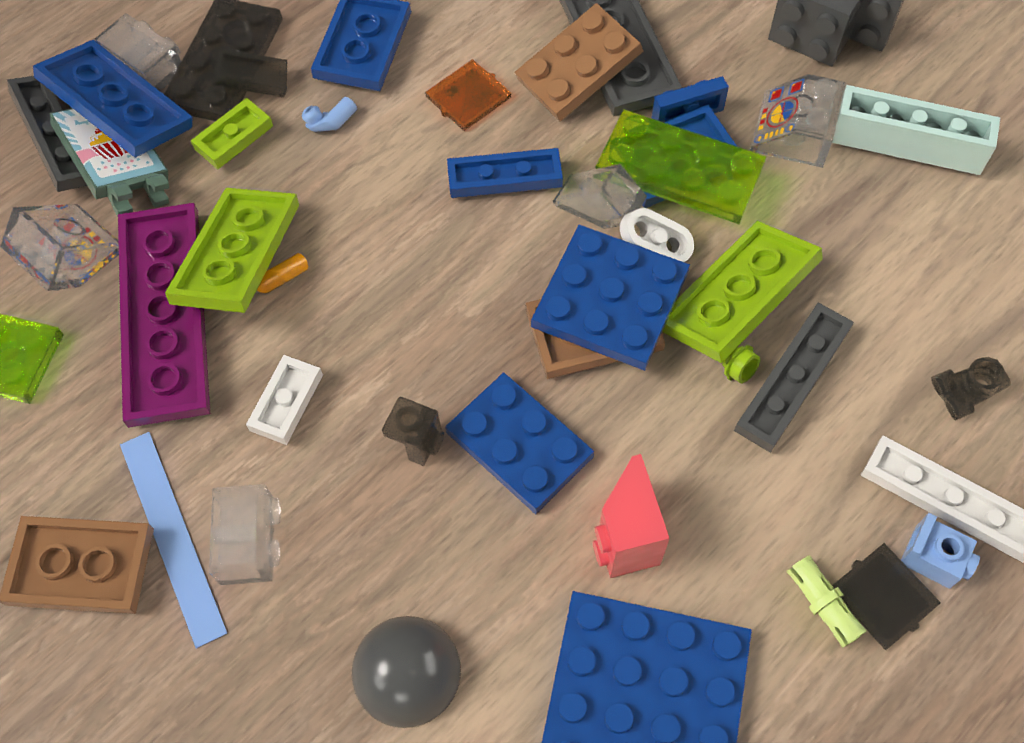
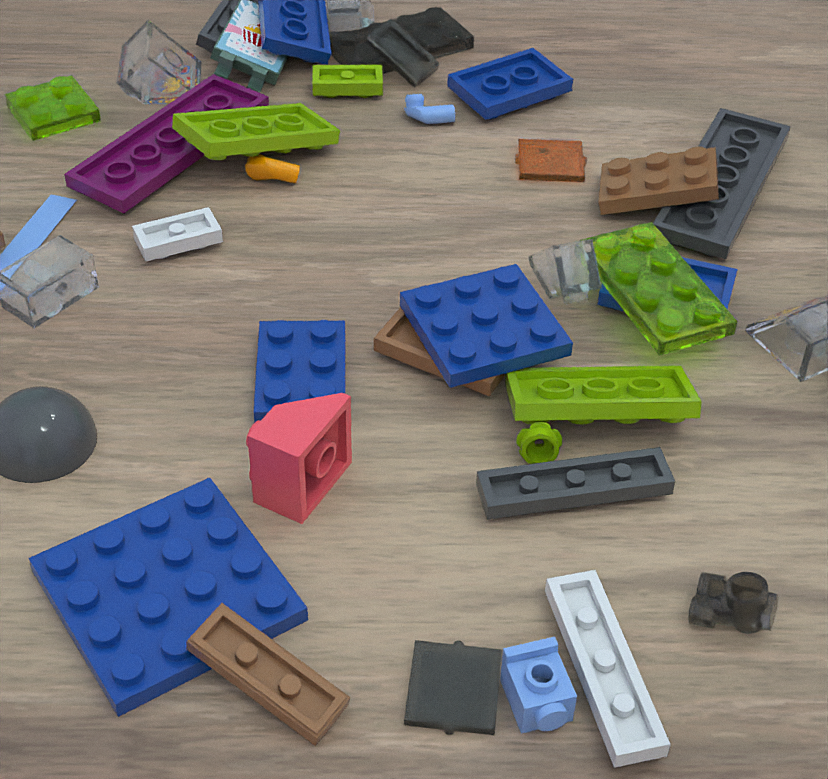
camera: 40 degrees right, 20 degrees down
(416, 428) = (232, 303): clear smoke bracket -> none
(504, 173) = (511, 213): blue plate -> none
(655, 232) = (578, 315): white plate -> none
(684, 100) = (748, 260): blue plate -> none
(788, 702) = (268, 673): none -> medium nougat tile
(826, 601) = (394, 644): yellowish green pin -> none

